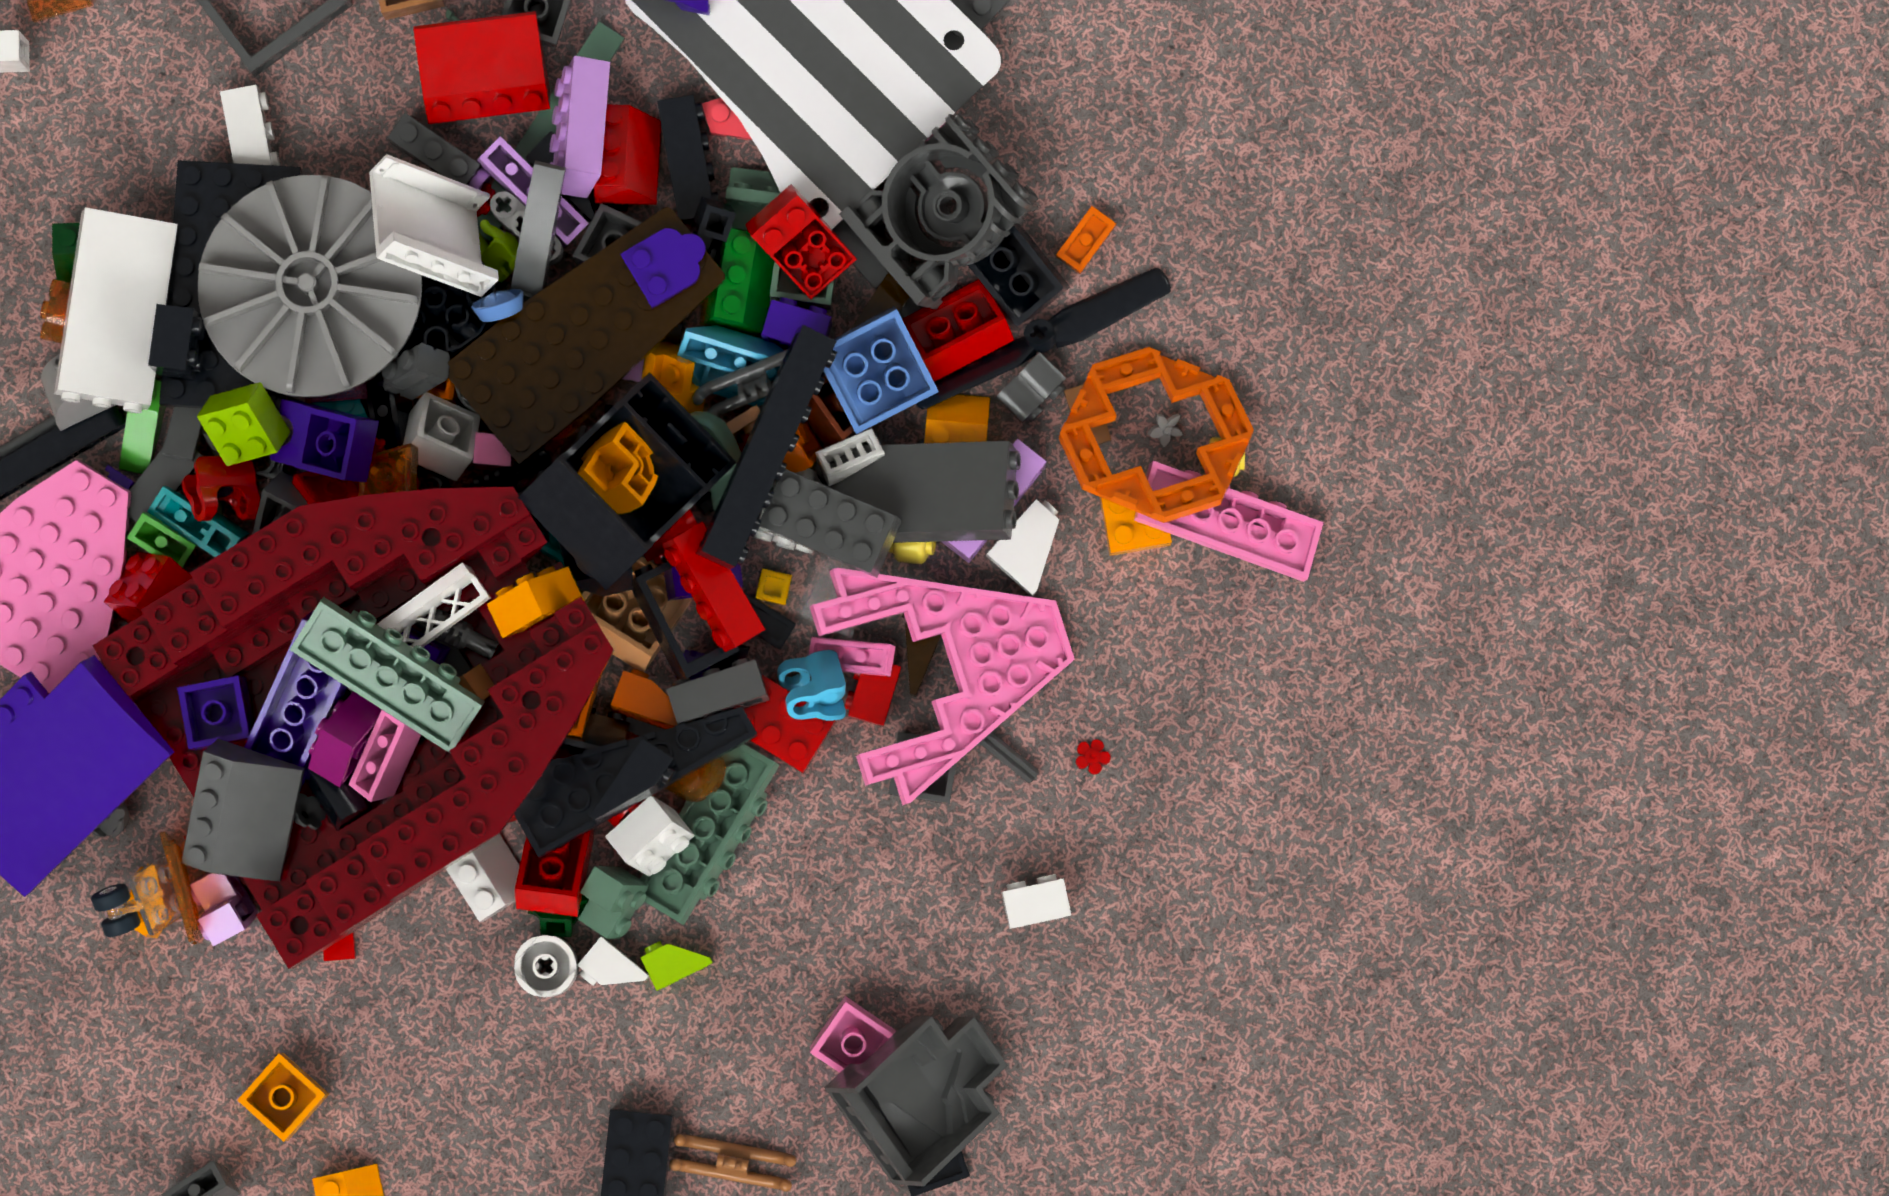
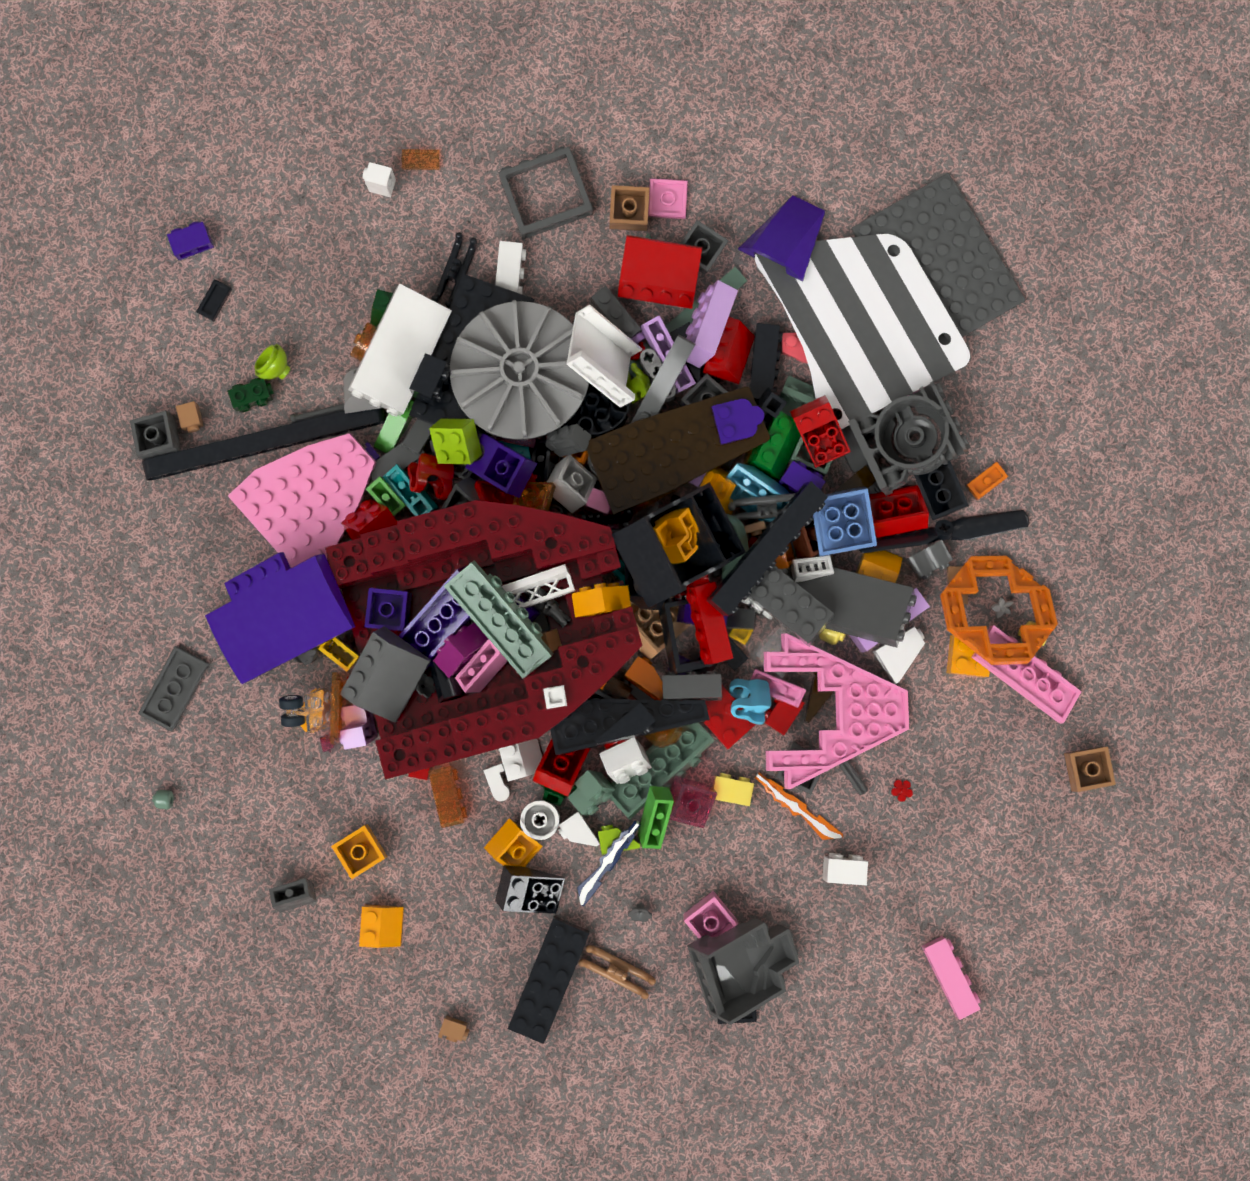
camera: 10 degrees right, 0 degrees up
(162, 156) = (454, 269): none -> black piece
(162, 801) = (339, 653): none -> yellow torso
(183, 948) = (325, 744): none -> clear pink plate
(394, 973) = (447, 796): none -> clear orange brick
(469, 939) = (498, 788): none -> white leg
(498, 305) = (629, 415): medium blue hat -> none
(504, 764) = (555, 697): none -> white tile
(517, 1021) = (512, 845): none -> light orange slope
(561, 1079) = (528, 890): none -> black slope
(655, 1040) = (607, 863): none -> sword
(721, 909) = (655, 817): none -> bright green brick
(742, 1065) = (640, 913): none -> dark grey plant
(765, 567) = (742, 619): none -> dark grey tile
(767, 870) = (691, 801): none -> clear pink brick
(829, 833) = (733, 790): none -> light yellow brick
(938, 831) = (797, 807): none -> orange sword
(1247, 1019) = (951, 978): none -> bright pink brick
(1368, 637) = (1089, 769): none -> medium nougat brick

